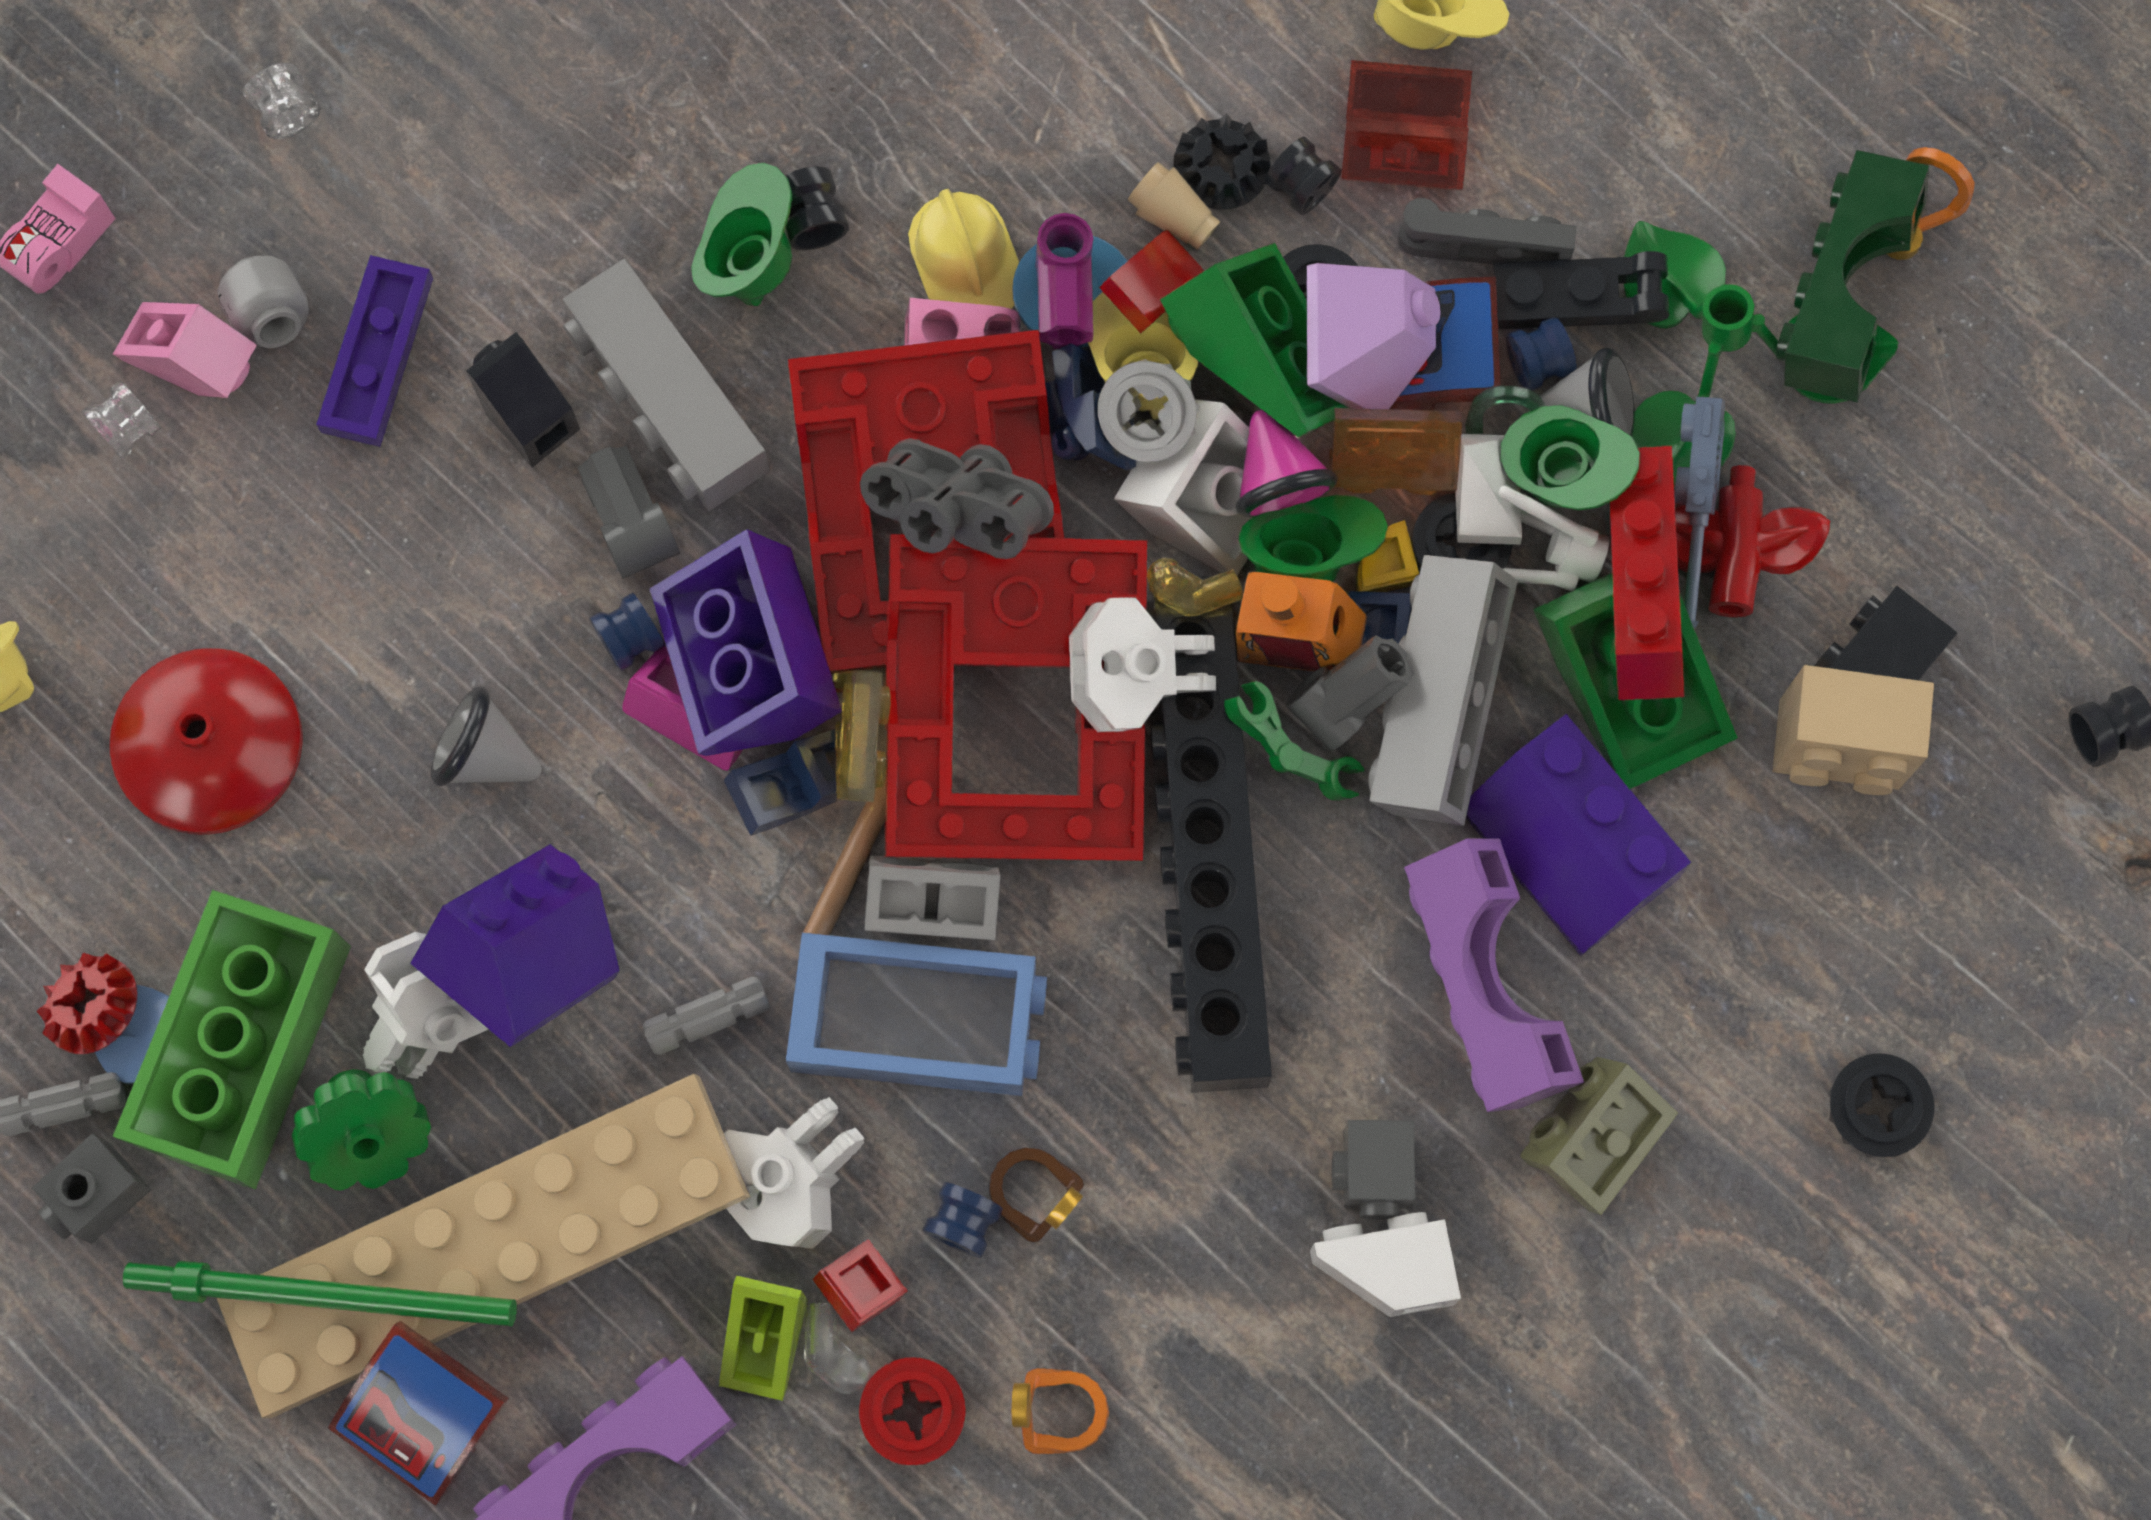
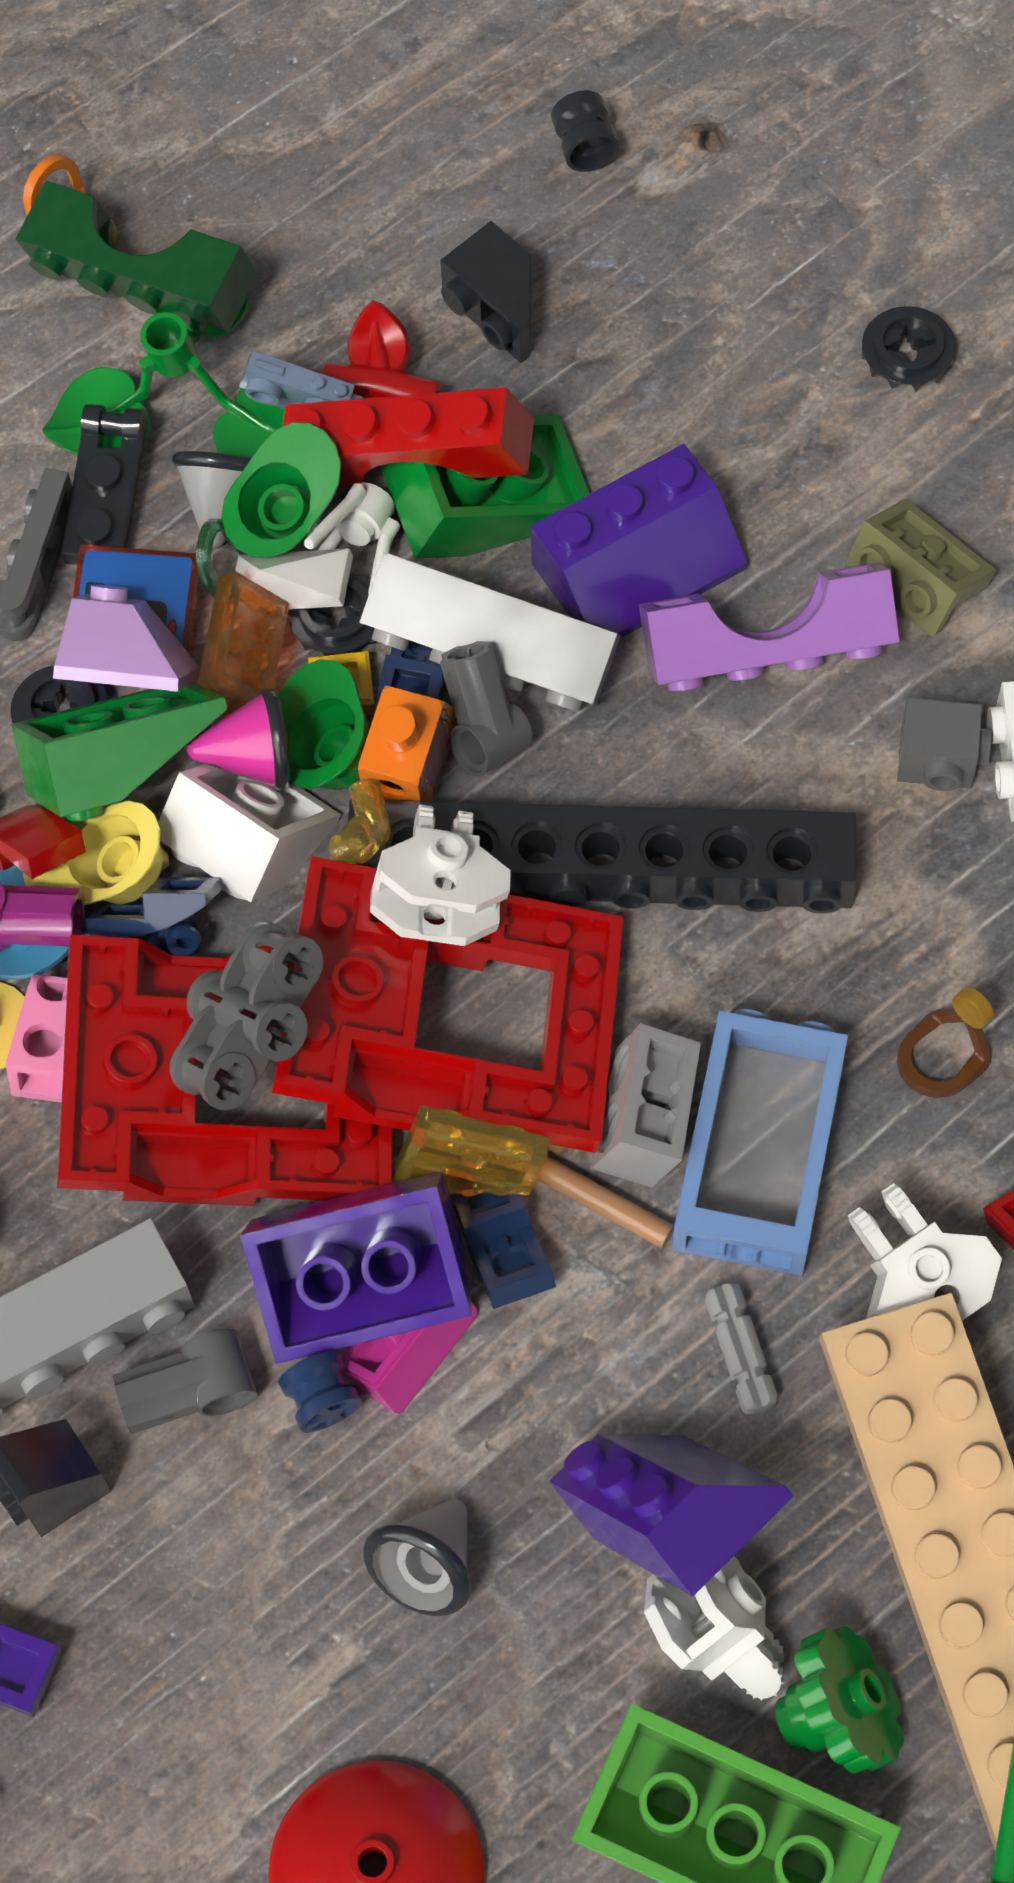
camera: 80 degrees left, 10 degrees down
(962, 1219) = (971, 1113): dark blue wheel -> none
(1120, 402) = (202, 852): light grey gear -> none
(1283, 754) = (504, 784): green piece -> none
(1541, 354) = (162, 519): dark blue wheel -> none
(1852, 729) = (571, 309): tan brick -> none

